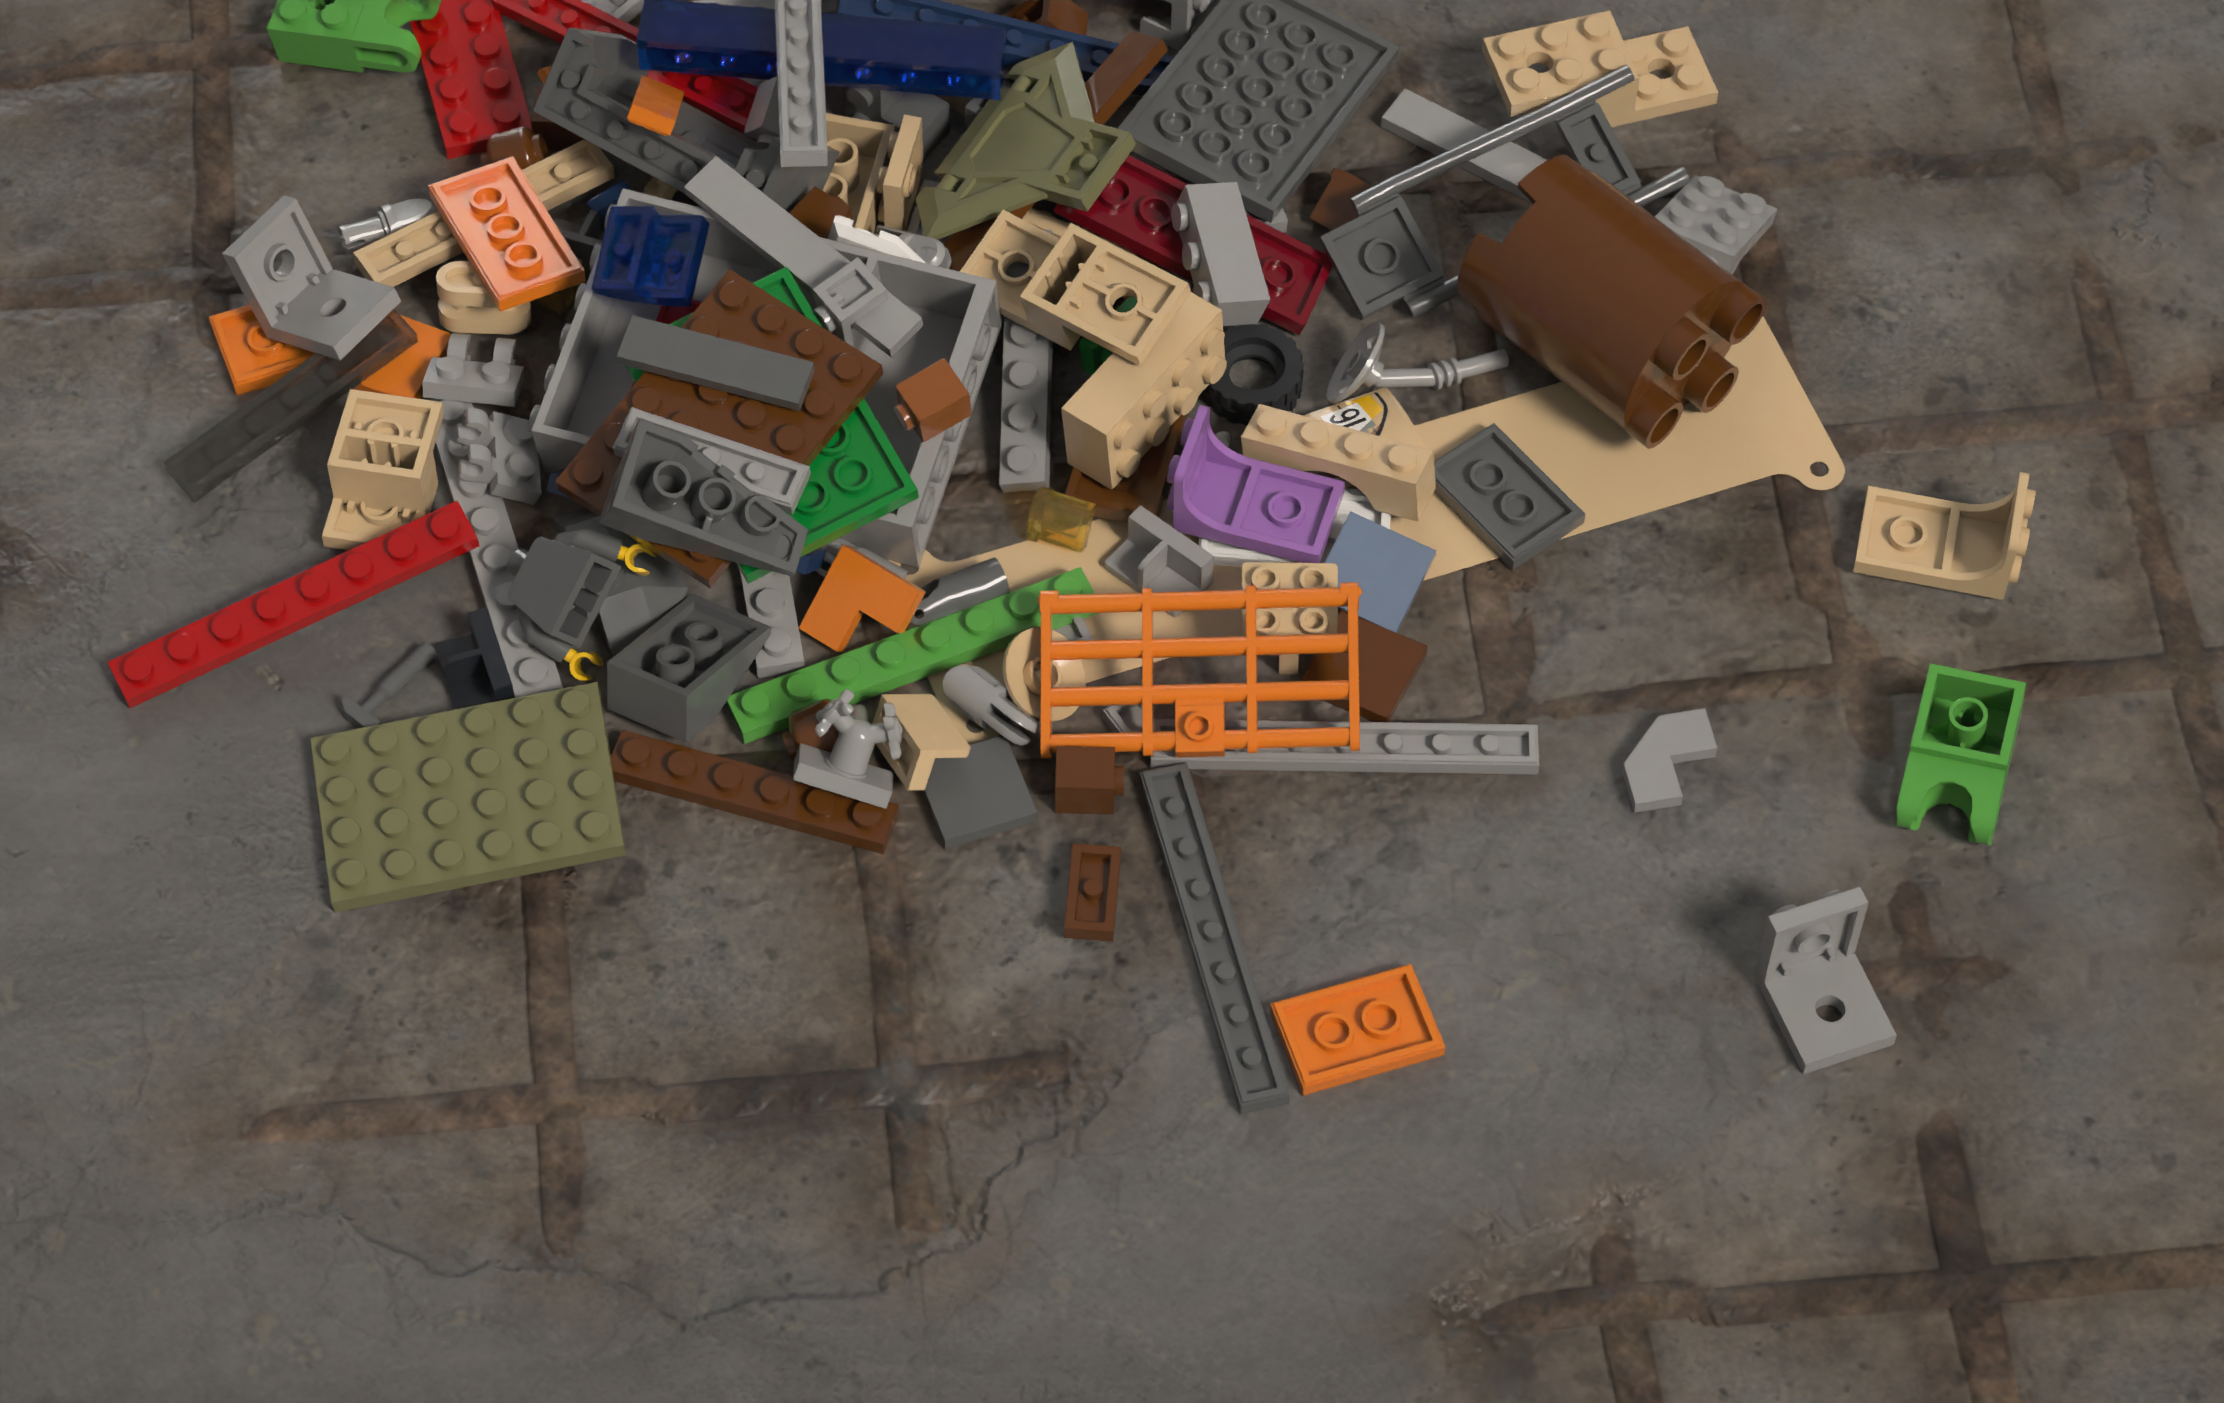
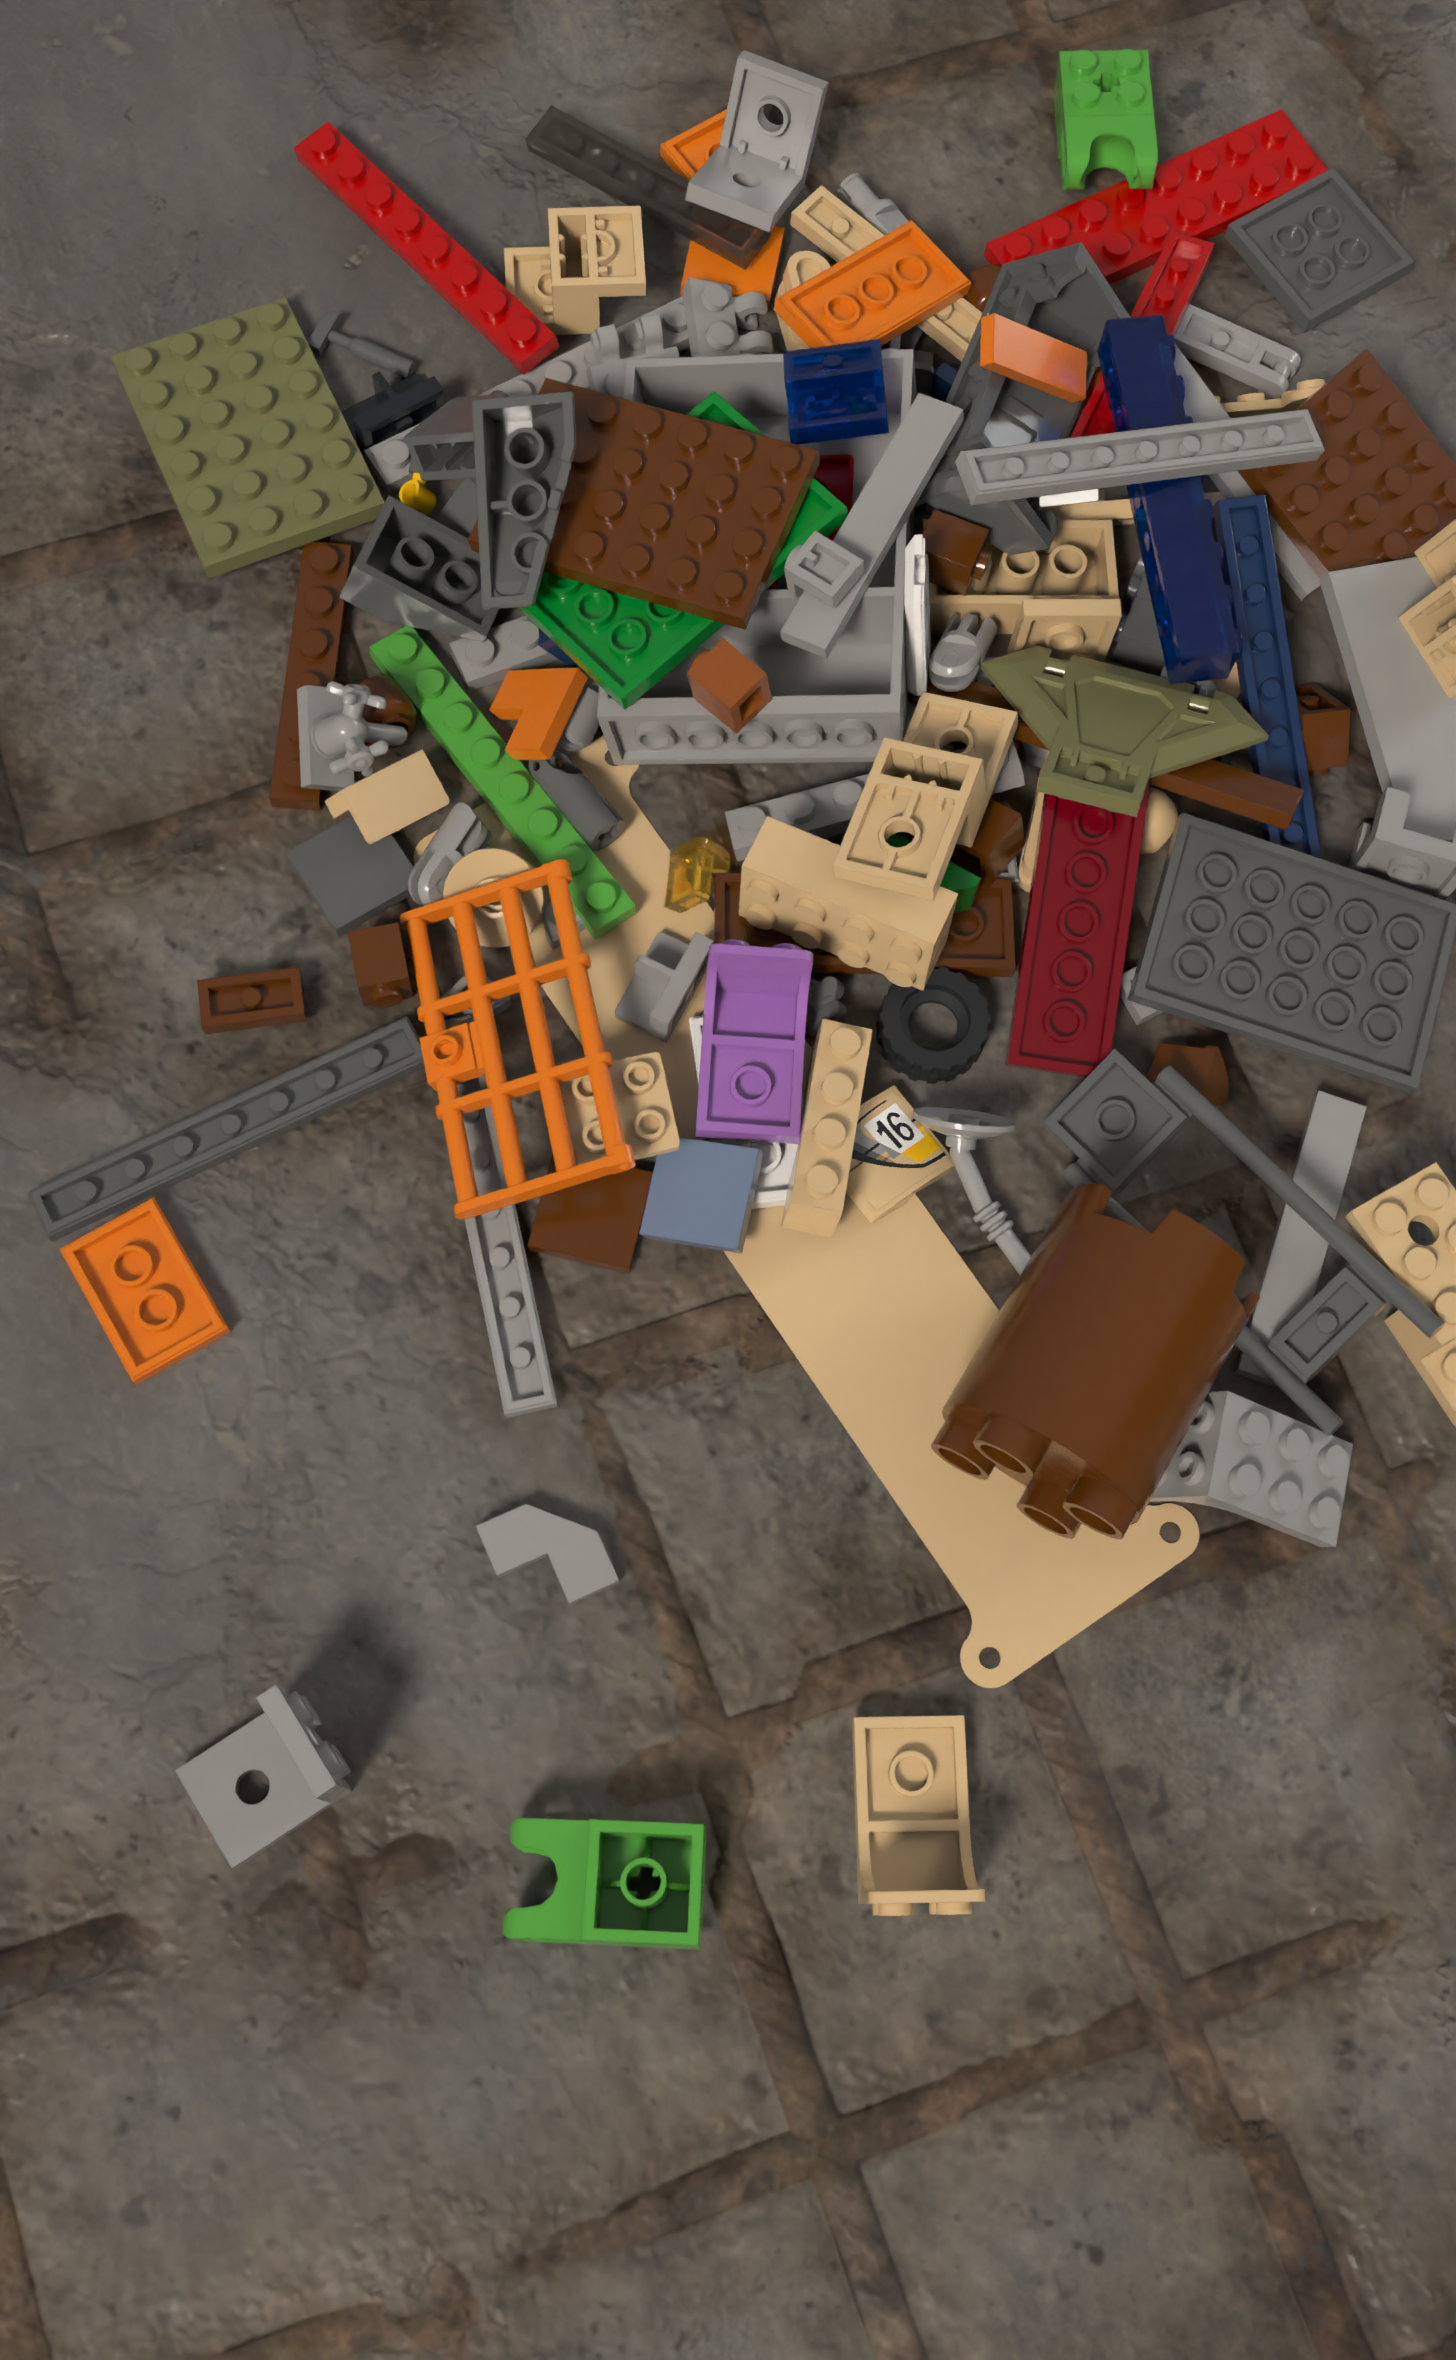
camera: 70 degrees right, 15 degrees up
(716, 363) = (694, 465): dark grey tile -> none
(760, 471) = (587, 502): light grey tile -> none
(1221, 251) = (1044, 943): light grey brick -> none
(1504, 496) = (850, 1314): dark grey tile -> none

